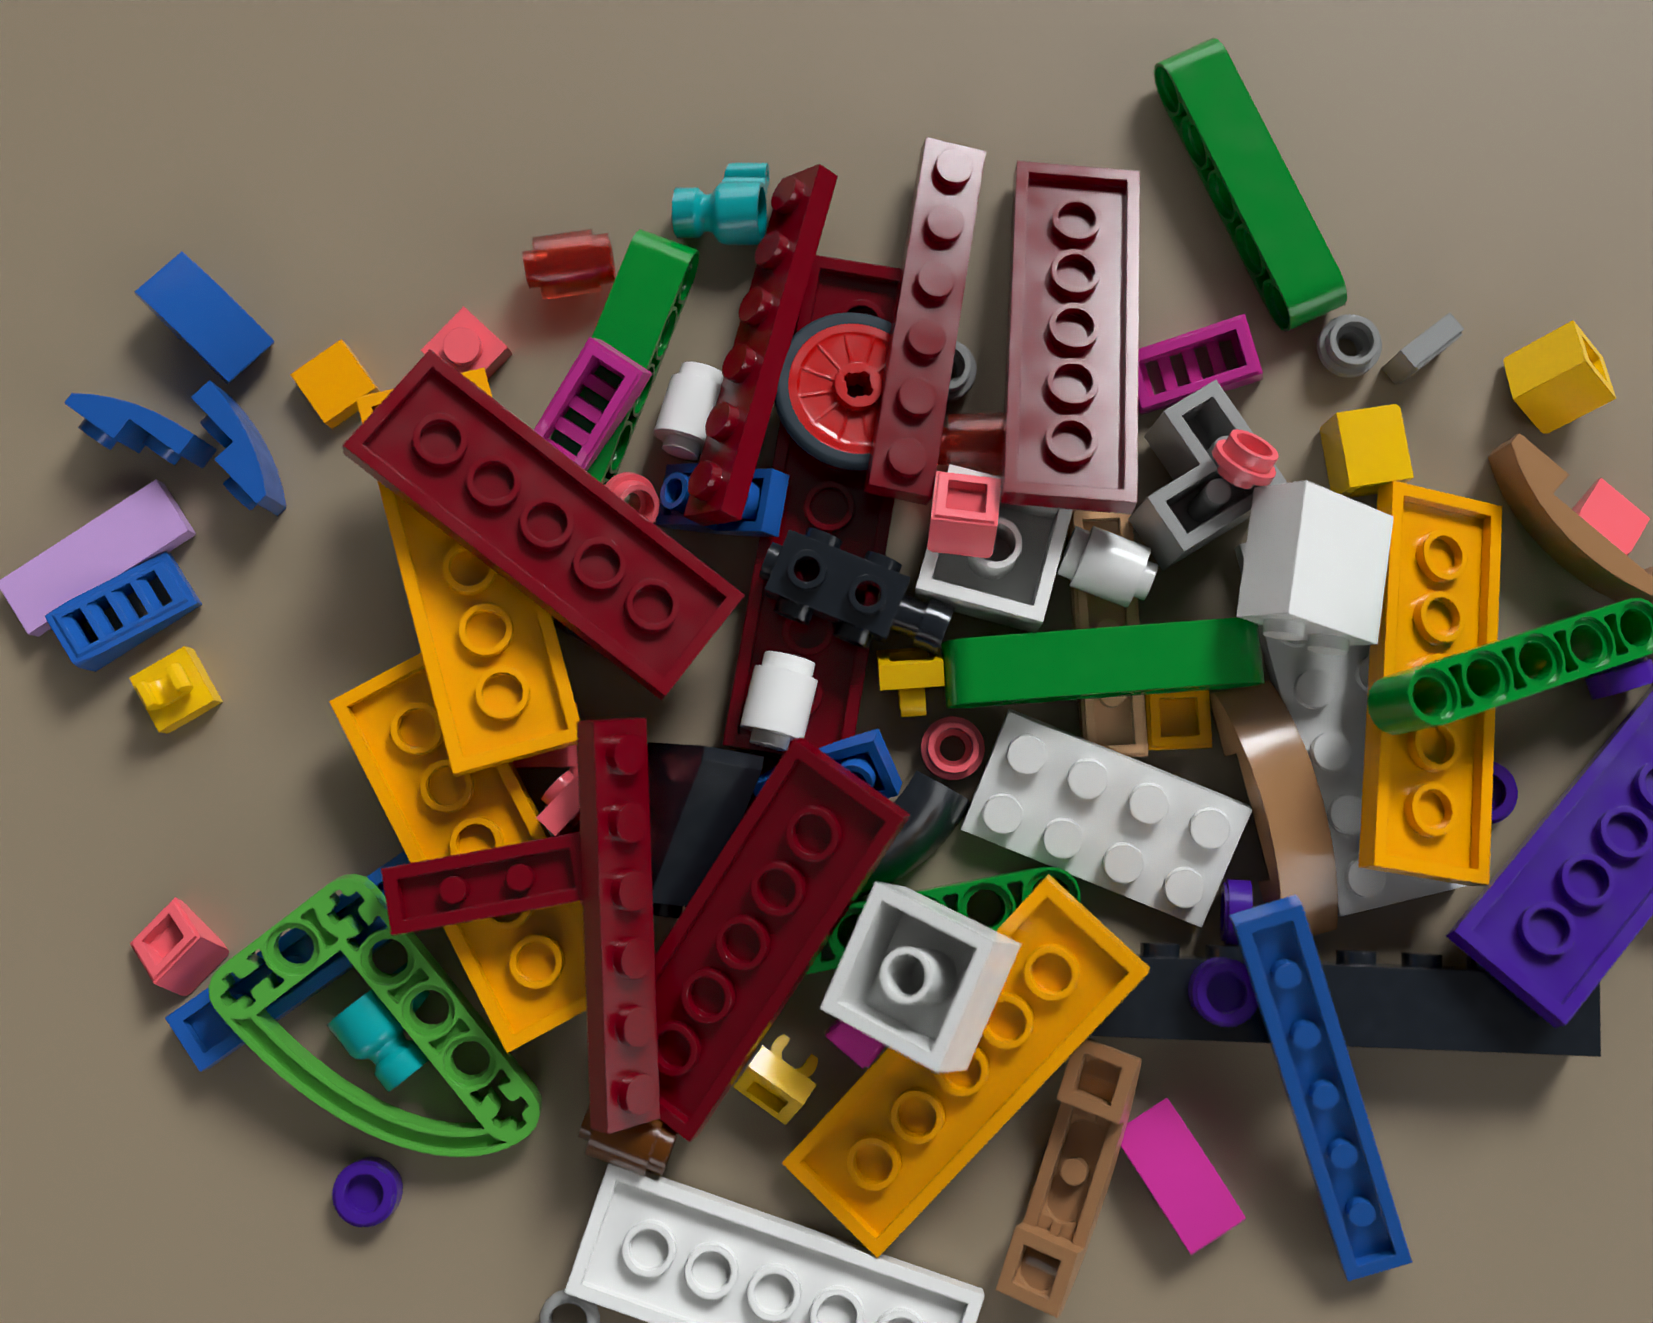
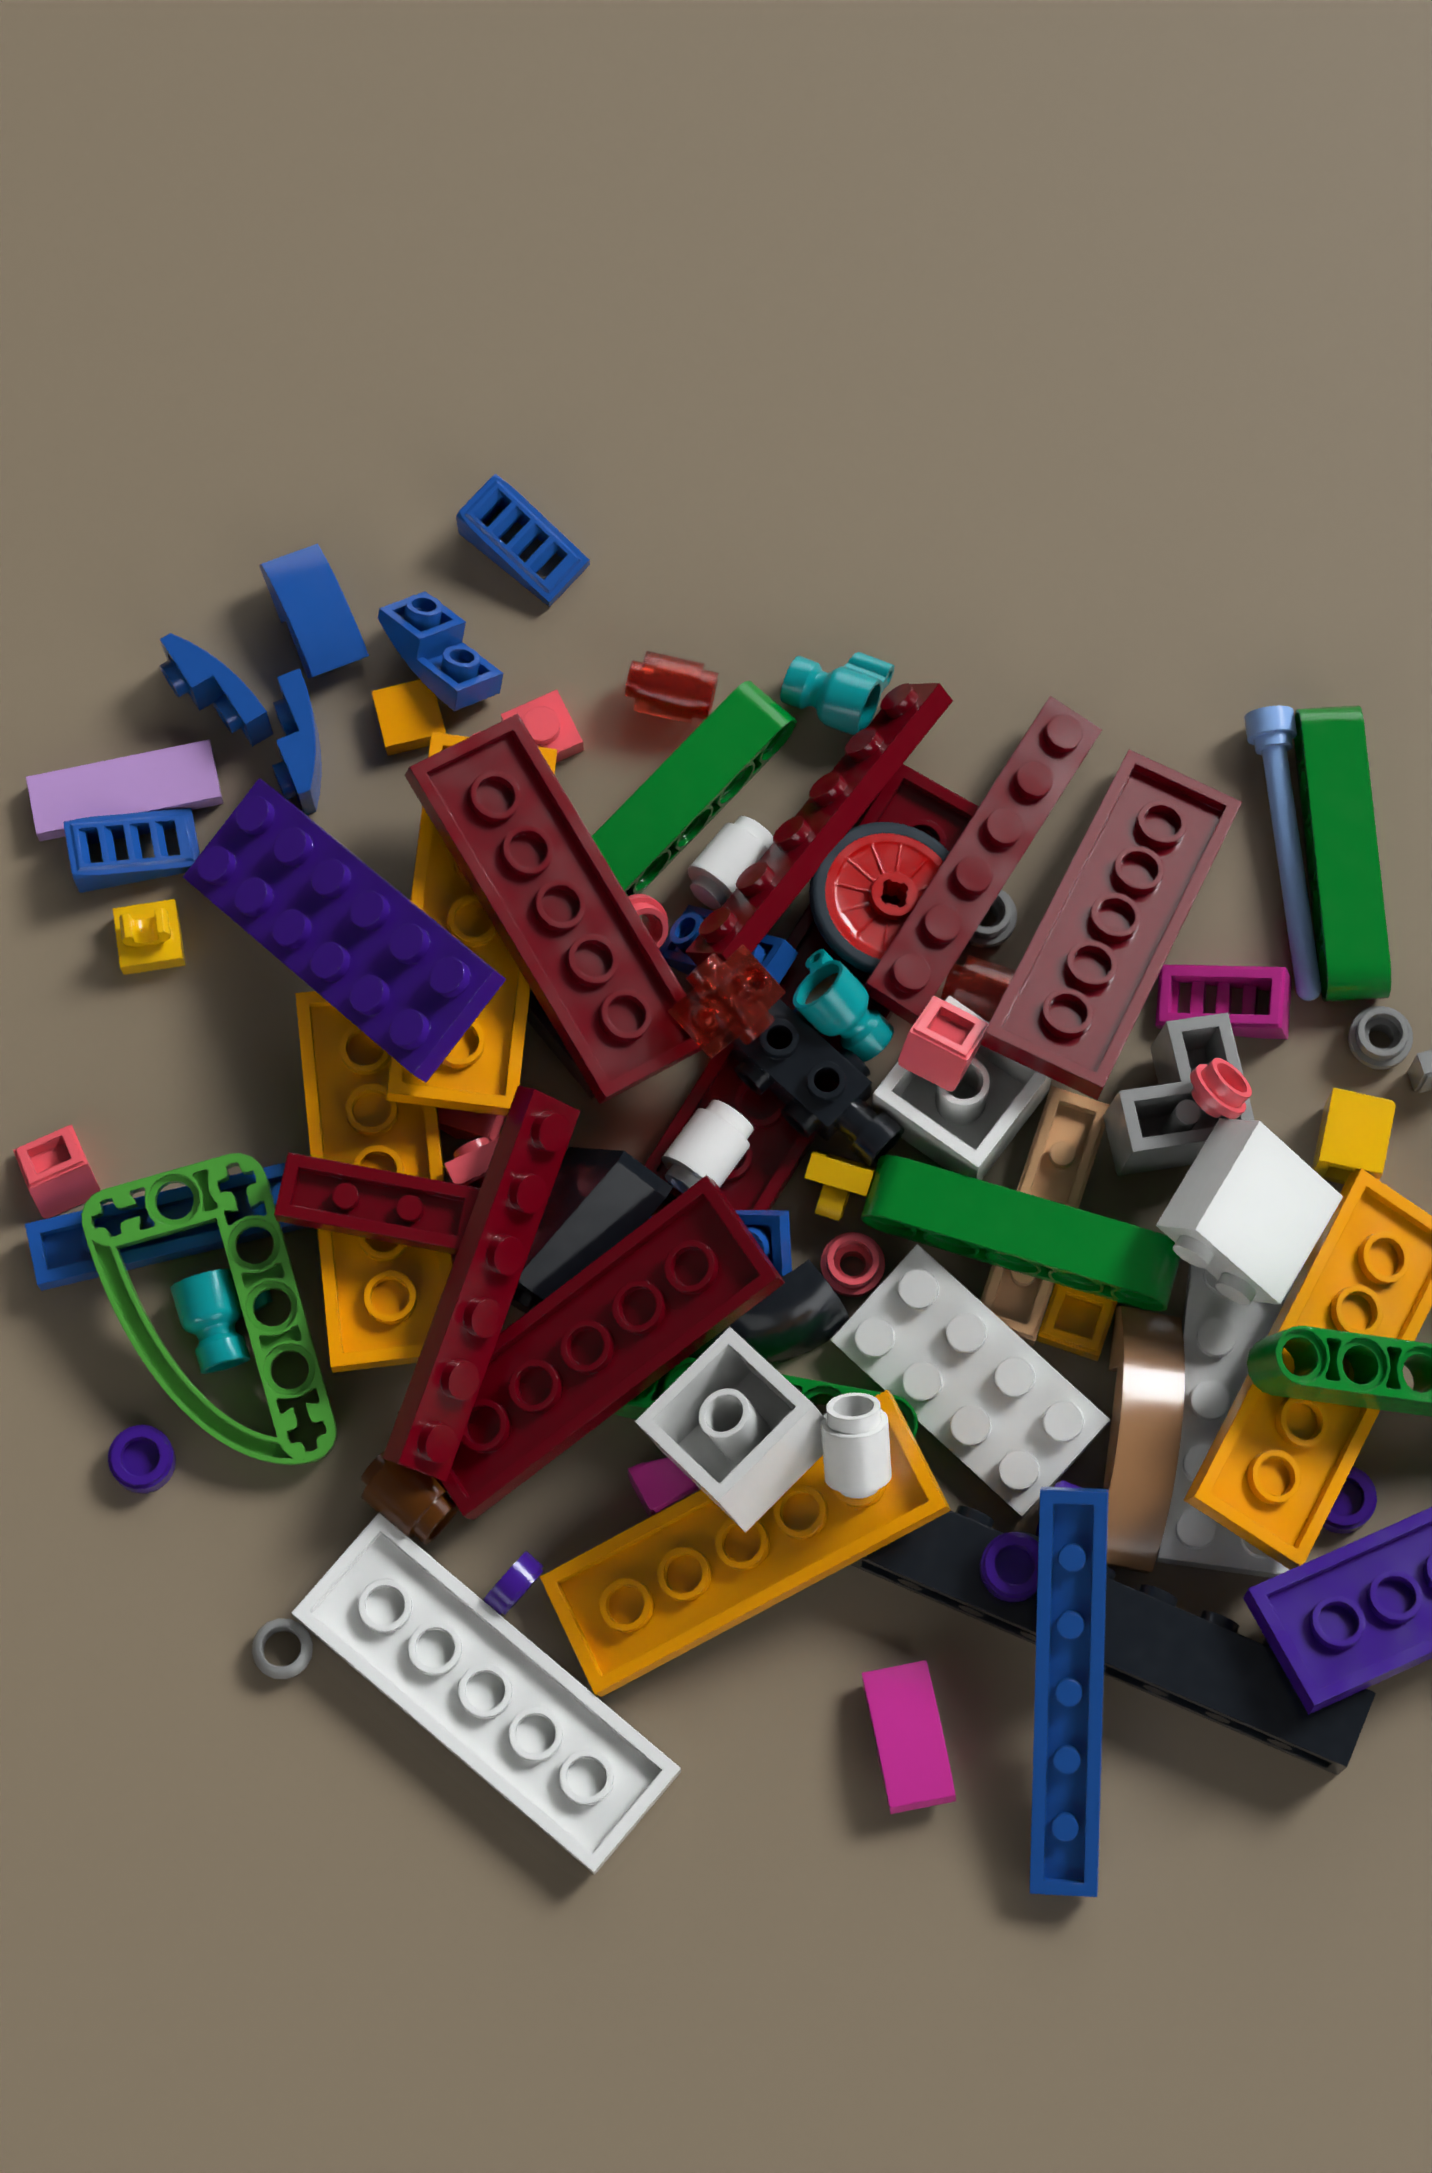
camera: 15 degrees right, 10 degrees down
(326, 154) = (499, 494): none -> blue slope
(332, 310) = (433, 647): none -> blue slope
(353, 626) = (344, 930): none -> dark purple plate
(620, 400) = (643, 790): dark pink slope -> none
(745, 555) = (727, 1001): none -> clear red brick
(760, 1179) = (514, 1583): none -> dark purple tile
(775, 1083) = (563, 1501): yellow tile -> none
(850, 514) = (838, 1006): none -> teal piece
(1044, 954) = (856, 1445): none -> white brick
(1072, 1177) = (812, 1692): medium nougat slope -> none
(1107, 565) = (1062, 1146): white brick -> none
(1141, 98) = (1272, 734): none -> light blue piece

